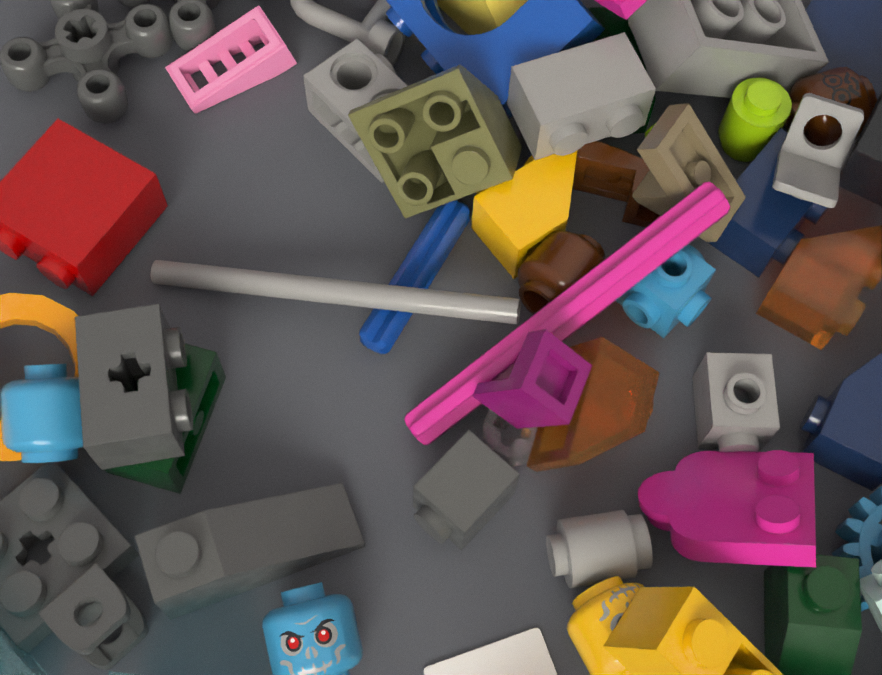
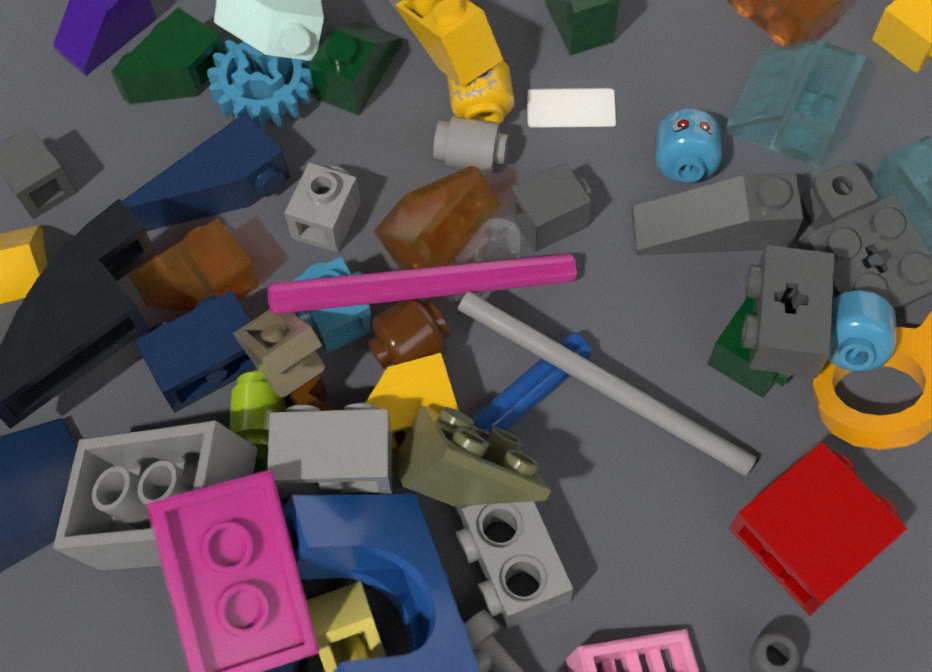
camera: 155 degrees left, 0 degrees up
(541, 384) = (474, 227): magenta panel -> none
(737, 507) = (365, 129): dark pink plate -> none
(753, 117) = (168, 409): lime brick -> none
(814, 170) = (169, 330): light grey bracket -> none
(838, 85) = (95, 411): reddish brown head -> none

